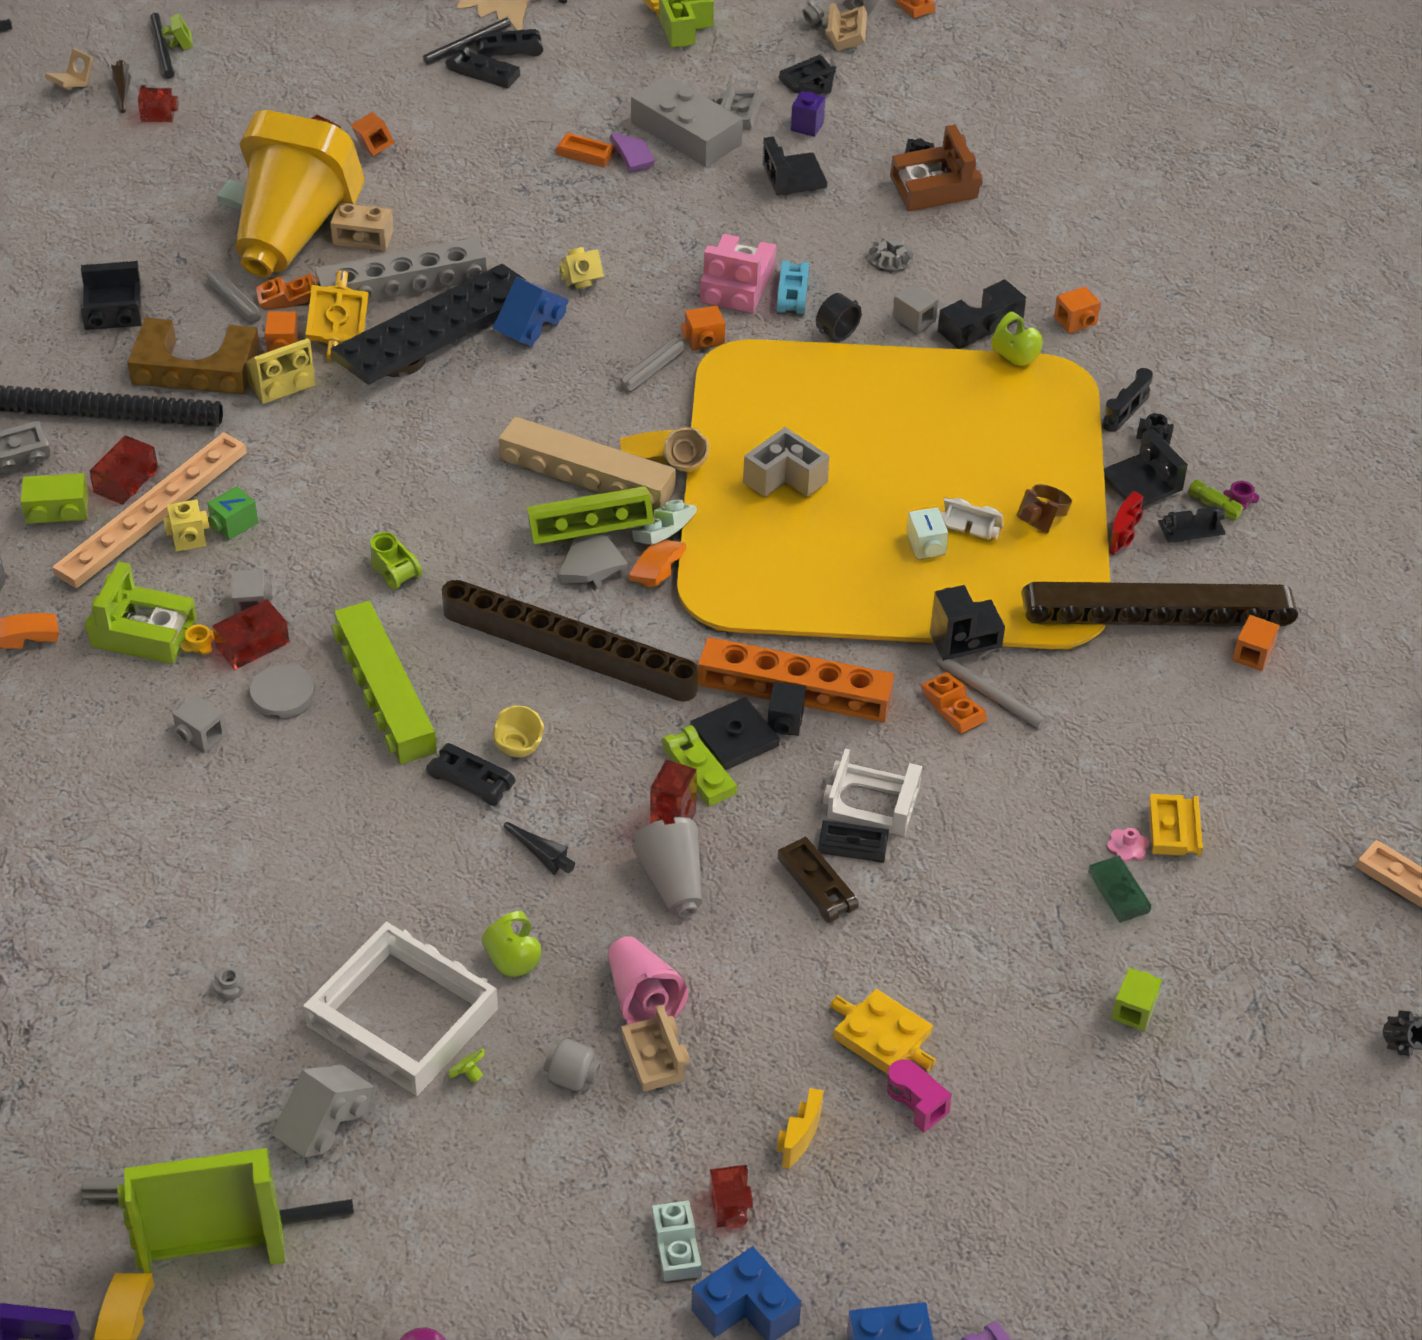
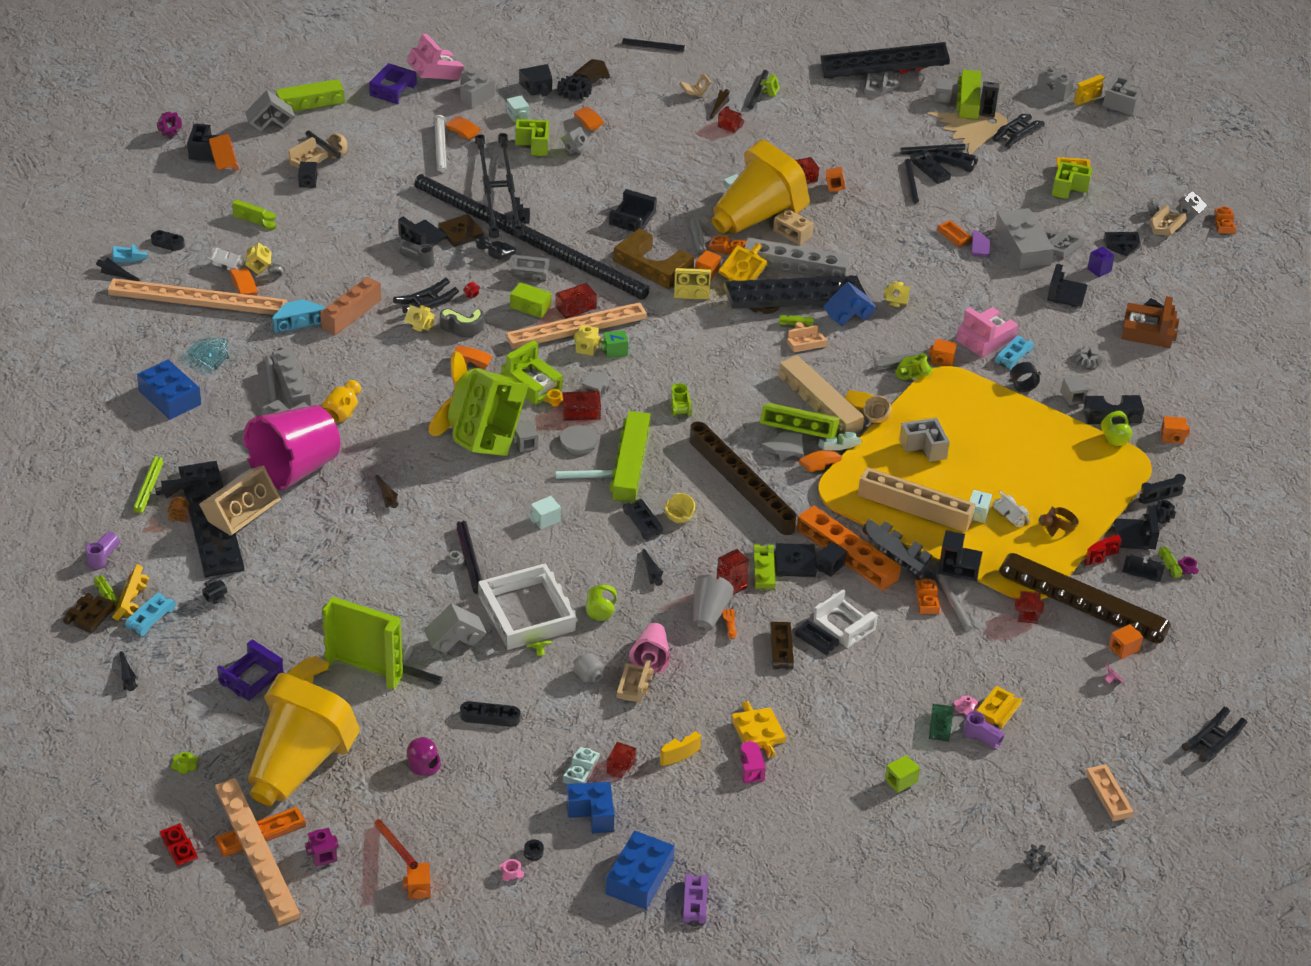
camera: 30 degrees right, 5 degrees down
(47, 924) = (388, 494): none -> dark brown piece
(112, 711) = (481, 409): none -> lime brick
(253, 968) = (469, 553): none -> black axle
(320, 834) = (545, 512): none -> light aqua brick
(329, 743) = (583, 474): none -> light aqua bar
(465, 1238) = (475, 717): none -> black beam
(466, 365) = (792, 320): none -> lime axle
(472, 97) = (912, 185): none -> black bar
(498, 386) = (805, 338): none -> light nougat slope
(682, 365) = (913, 367): none -> lime piece
(711, 875) = (729, 618): none -> orange piece
(842, 562) = (916, 499): none -> tan brick
(869, 648) = (892, 547): none -> black piece
(1102, 652) = (1029, 607): none -> clear red brick
(1174, 870) = (977, 727): none -> medium lavender piece
(1277, 700) = (1112, 675): none -> bright pink plant

